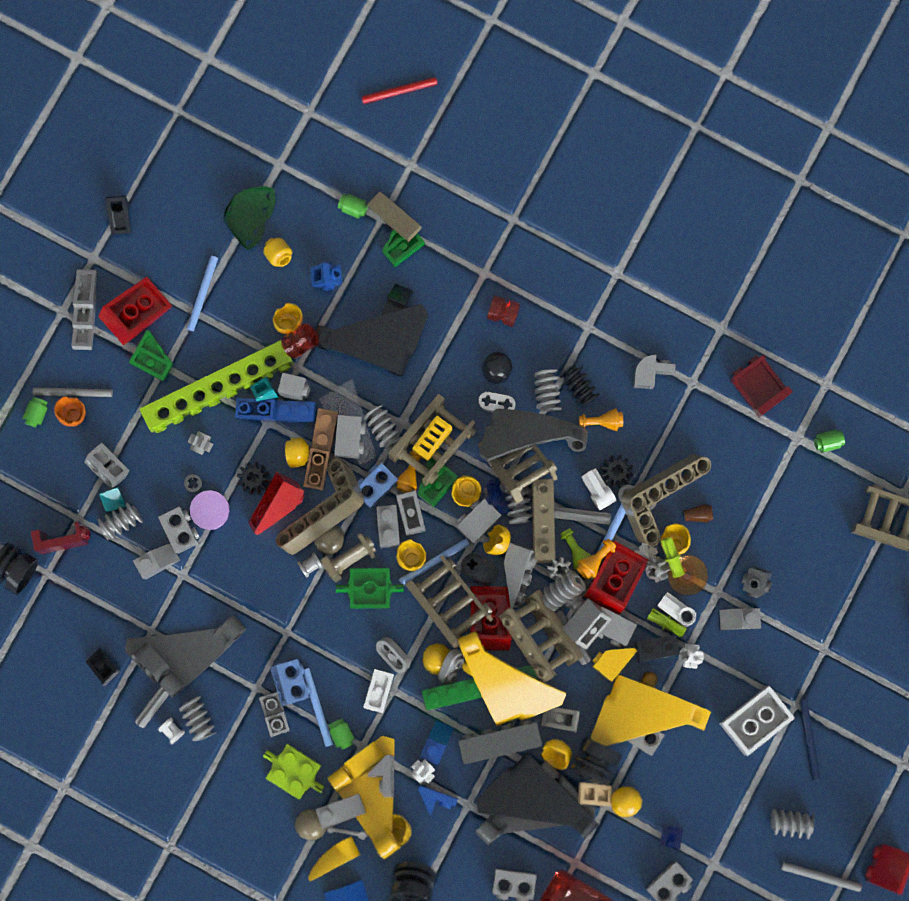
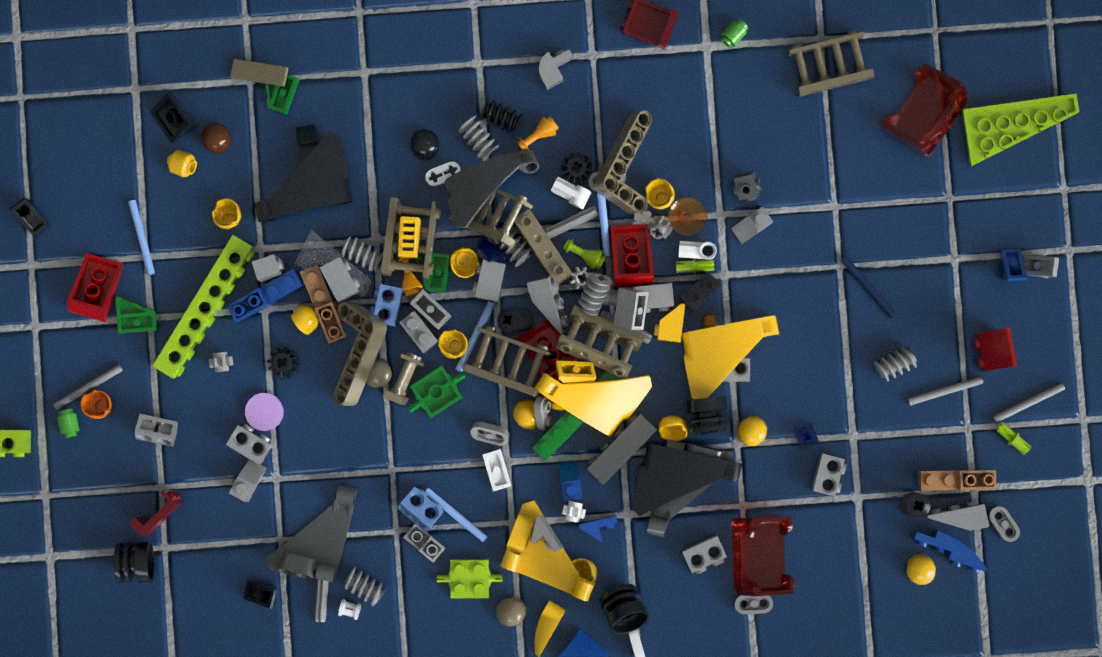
camera: 30 degrees left, 5 degrees up
(84, 309) = (52, 313): light grey slope -> none
(112, 500) = (179, 454): teal slope -> none
(119, 521) = (196, 467): light grey piece -> none
(186, 483) = (232, 403): dark grey bush -> none
(247, 214) = (137, 148): dark green piece -> none
(263, 390) = (245, 285): teal slope -> none
(278, 501) = (315, 370): red slope -> none
(295, 208) = (172, 117): none -> black slope
(300, 341) = (248, 226): clear red wheel -> none
(310, 565) = (375, 404): light grey bush -> none
(320, 248) = (216, 138): none -> reddish brown hair
(326, 276) = (235, 158): blue brick -> none
(340, 811) = (528, 585): light grey slope -> none
(341, 734) = (489, 524): bright green brick -> none
(353, 205) = (219, 85): bright green brick -> none
(362, 835) = (557, 593): light grey hinge -> none
(499, 540) = (516, 285): yellow hair -> none
(503, 648) = (575, 371): none -> yellow slope
(505, 311) = (400, 94): clear red wheel -> none
(560, 719) = (658, 398): light grey slope -> none
(589, 566) = (603, 260): light orange piece -> none
(595, 794) = (723, 441): tan slope -> none
(672, 557) = (666, 210): lime axle -> none
(691, 656) = (731, 280): white gear -> none
(699, 514) = (665, 160): reddish brown cone -> none
(757, 720) = (816, 299): white brick -> none

